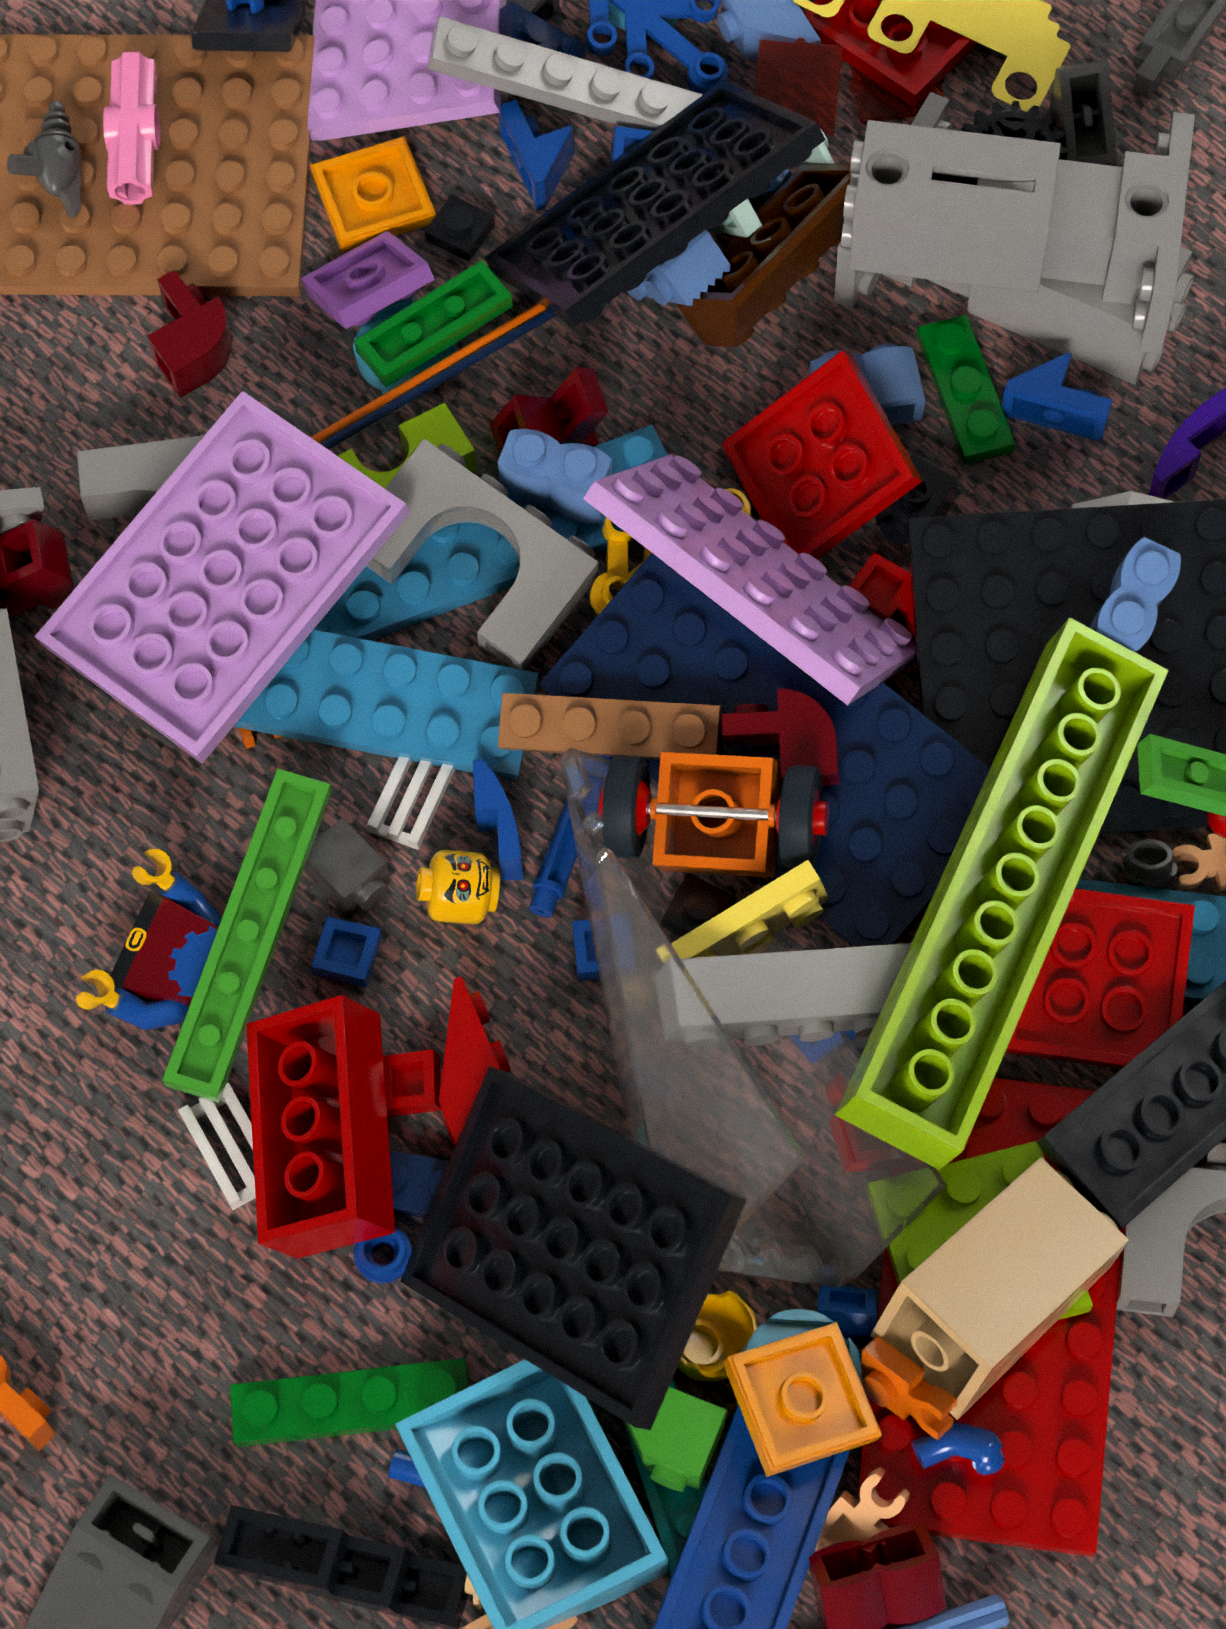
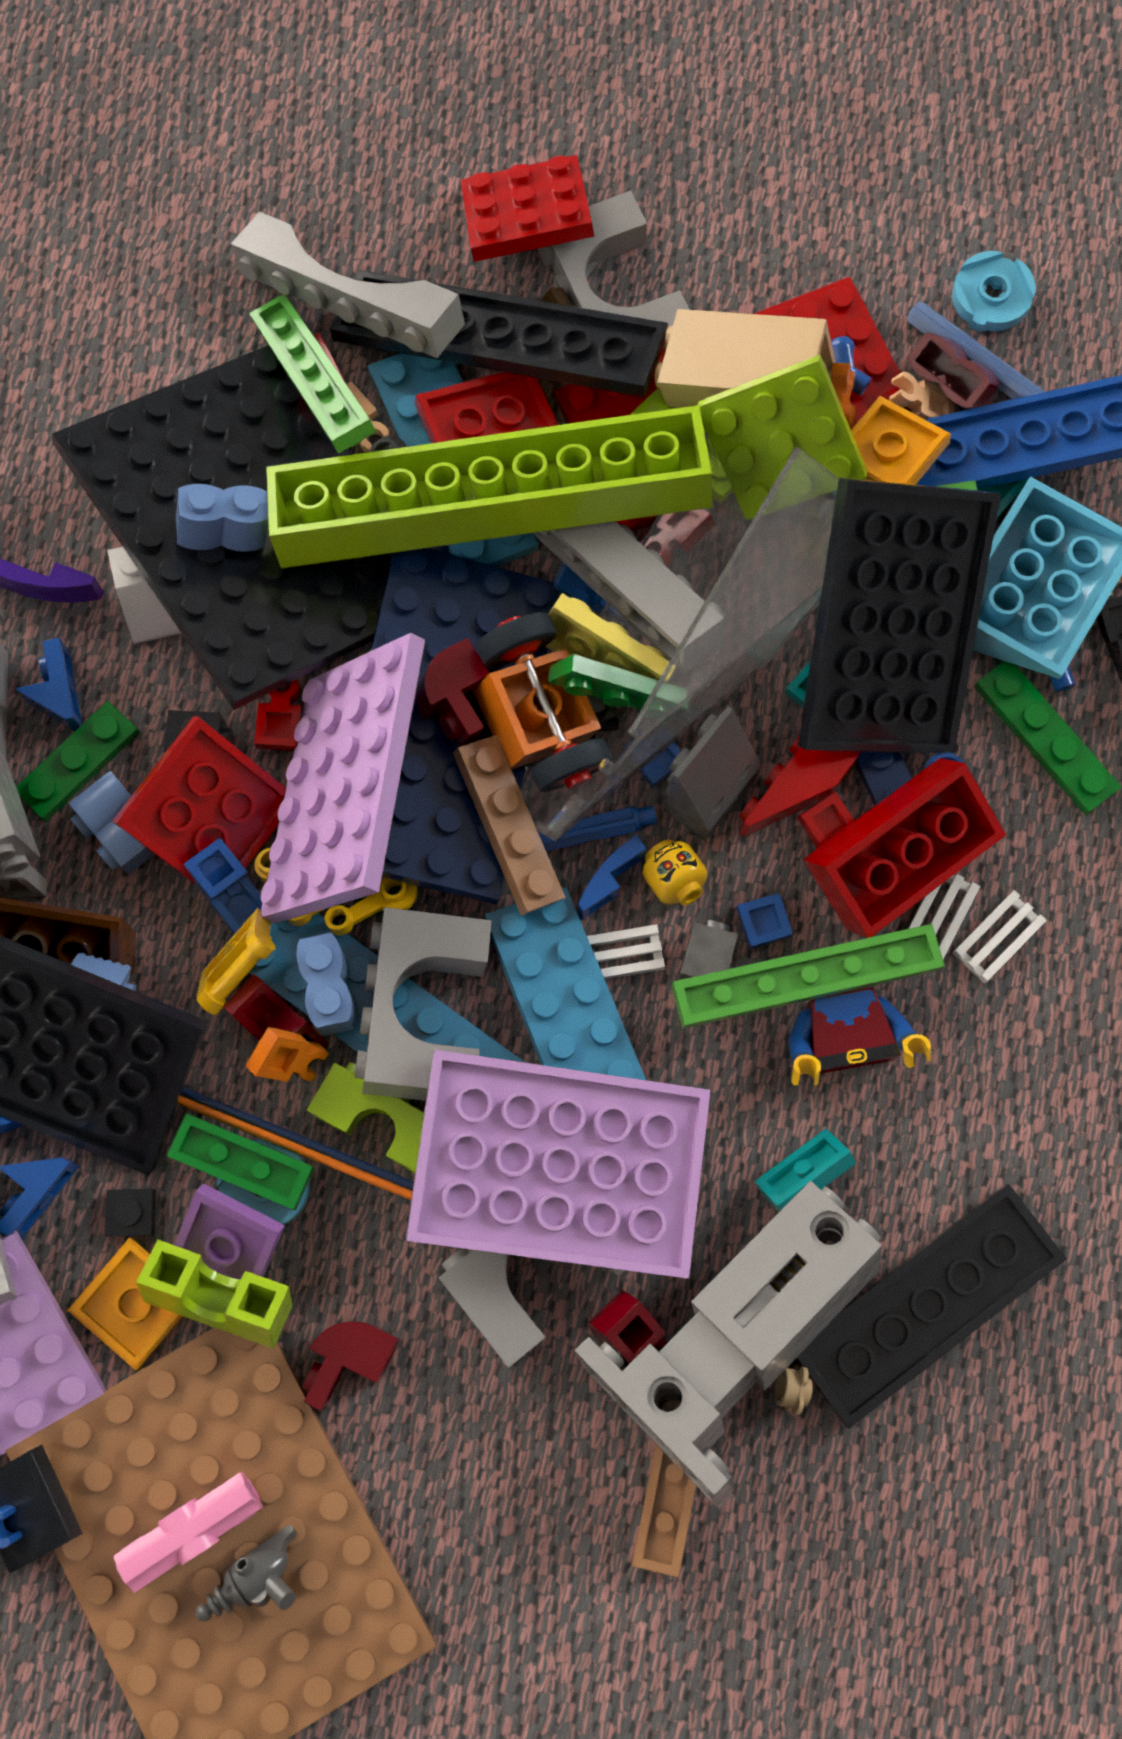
camera: 125 degrees left, 10 degrees up
(63, 832) = (816, 1161): none -> teal plate
(154, 1149) = (1024, 911): none -> white tile
(344, 226) = (187, 1286): none -> lime arch
(507, 394) = (282, 1053): none -> orange plate
(532, 964) = (711, 775): none -> dark grey slope
(635, 406) = (234, 962): none -> yellow plate
(686, 892) = (612, 684): none -> green plate
(733, 449) = (224, 884): none -> blue slope
(874, 1246) = (768, 418): none -> lime plate

